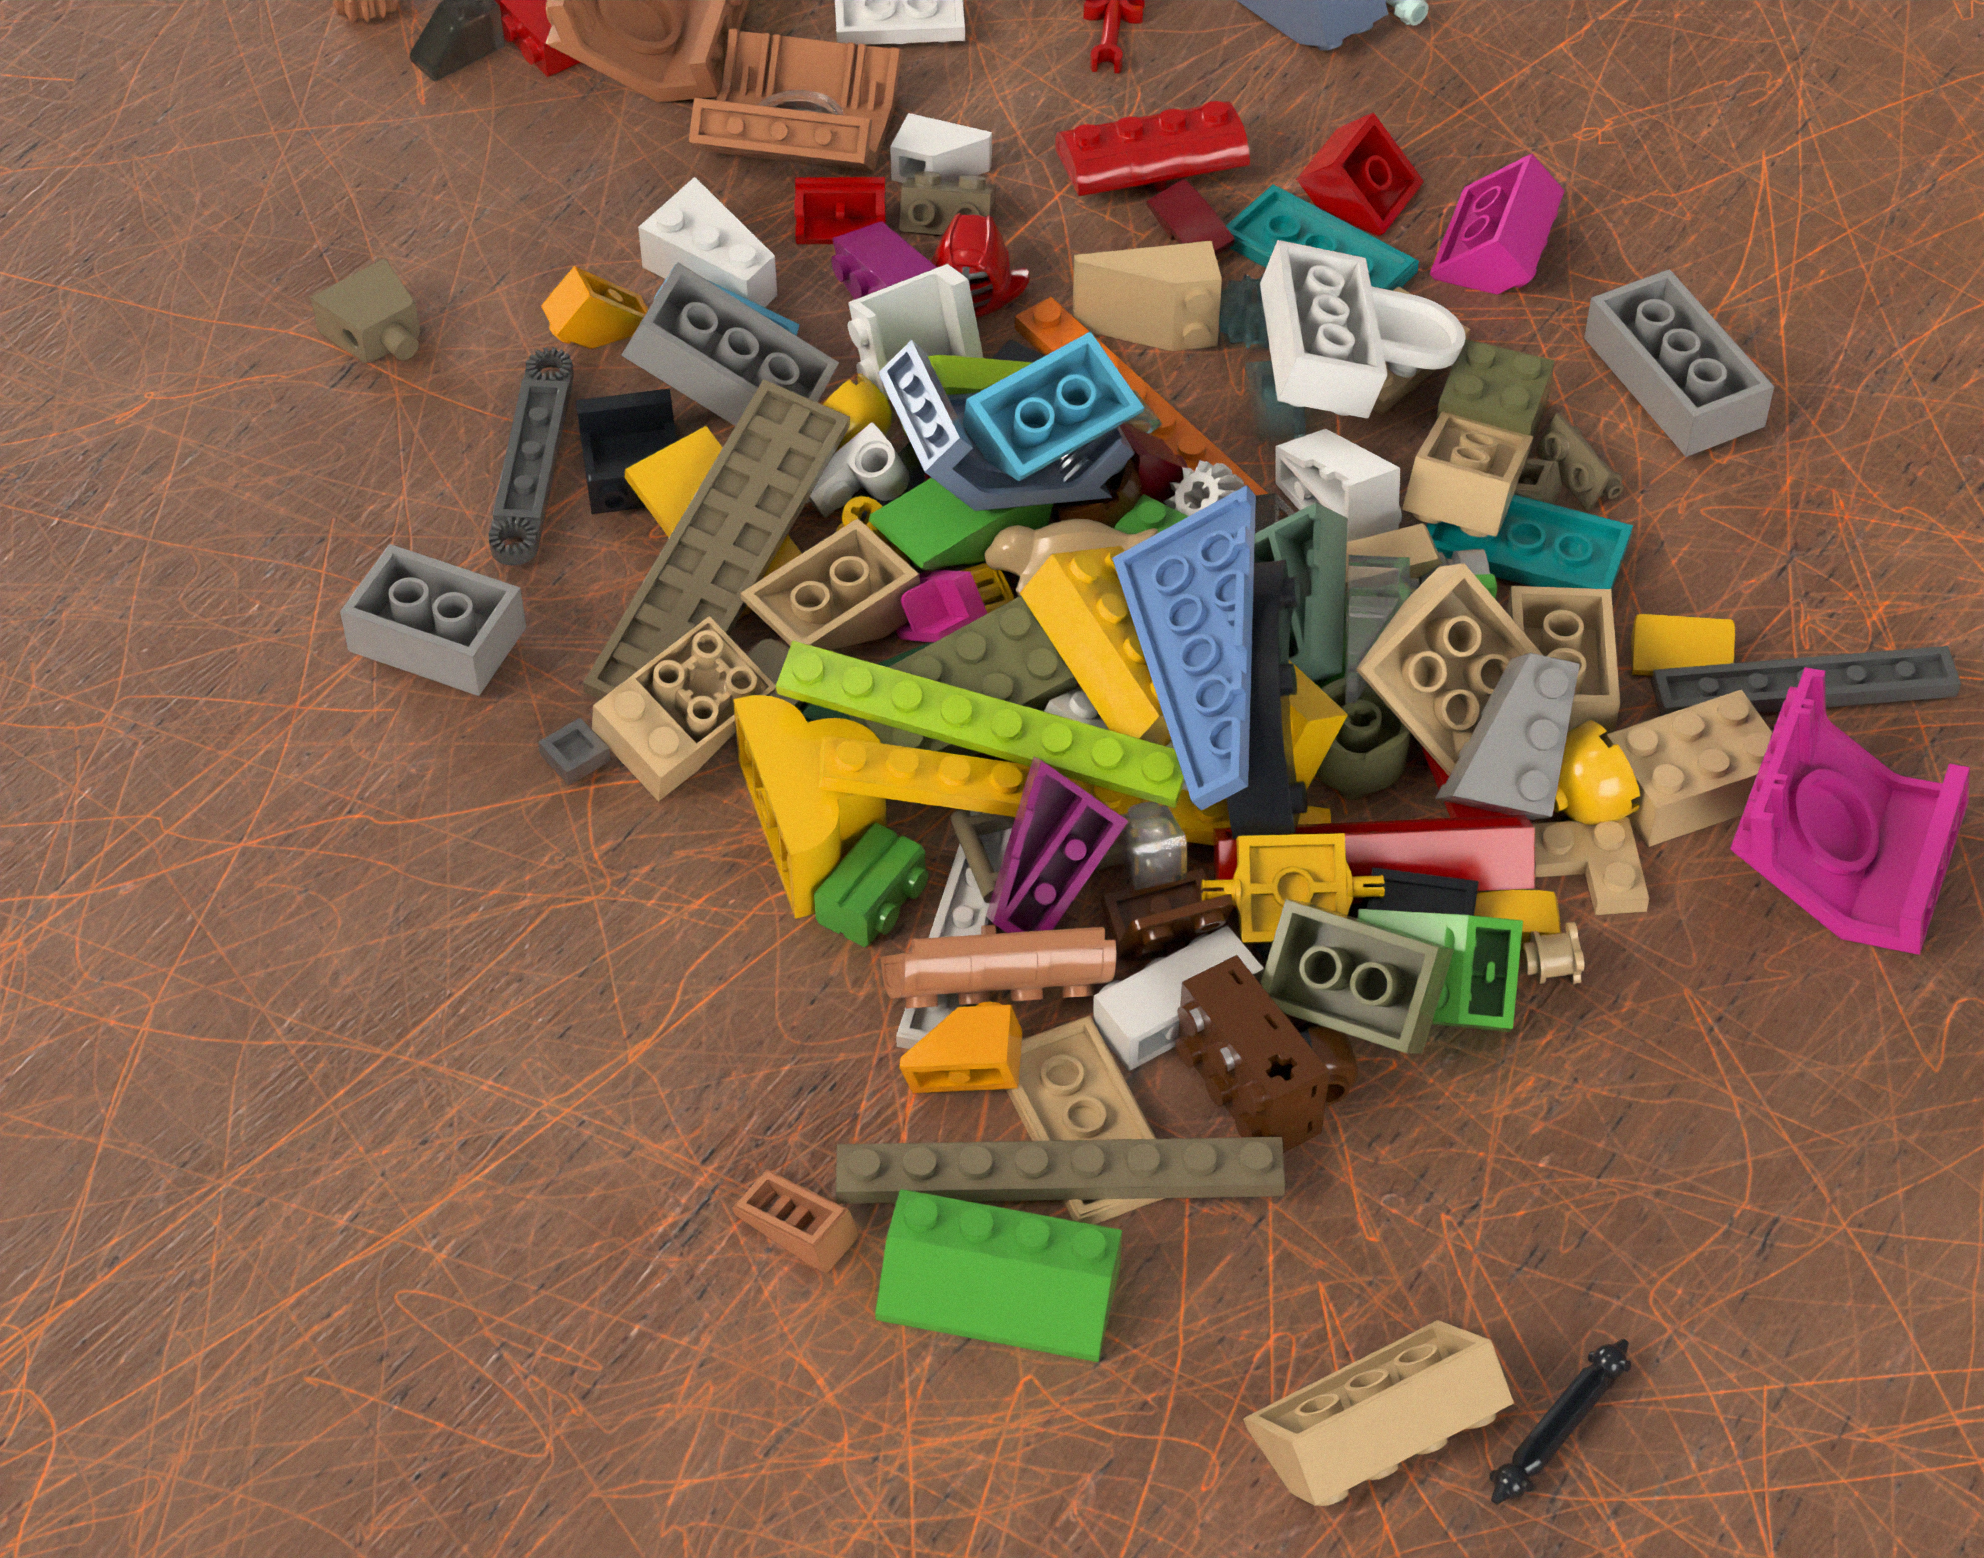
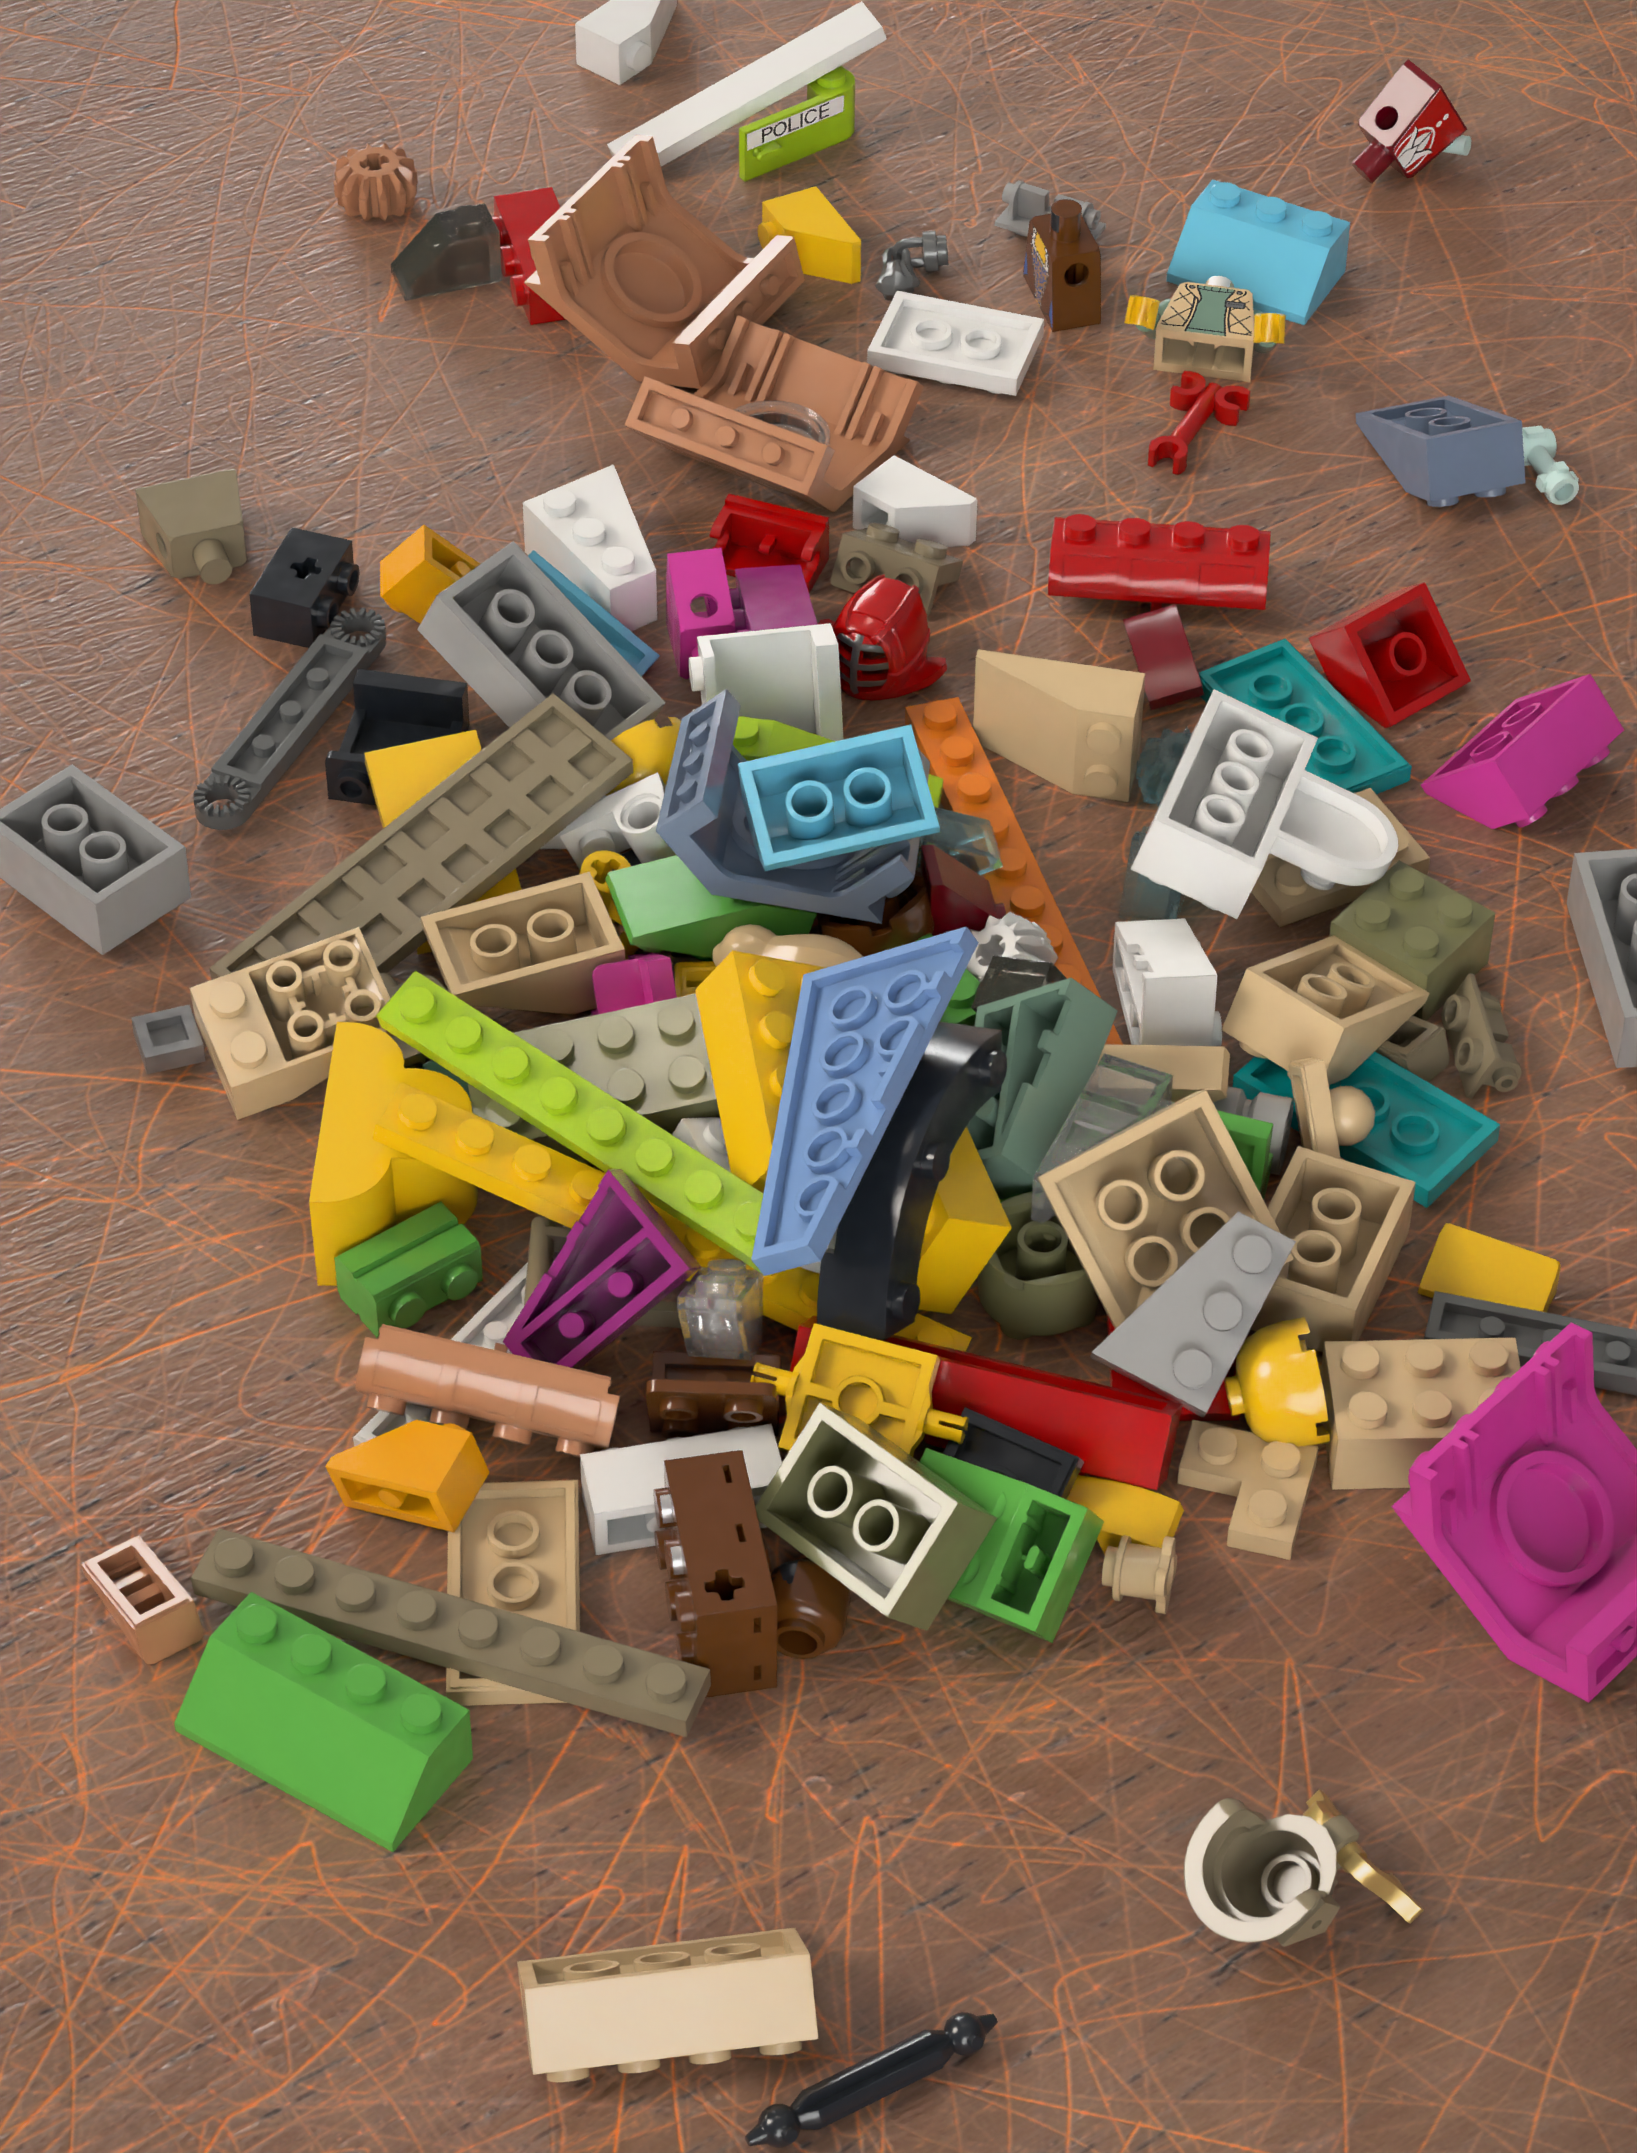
camera: 20 degrees right, 5 degrees down
(486, 344) = (303, 587): none -> black brick
(822, 282) = (687, 578): none -> dark pink torso
(1511, 552) = (1325, 1115): none -> tan tile
(1783, 1162) = (1278, 1874): none -> dark tan helmet

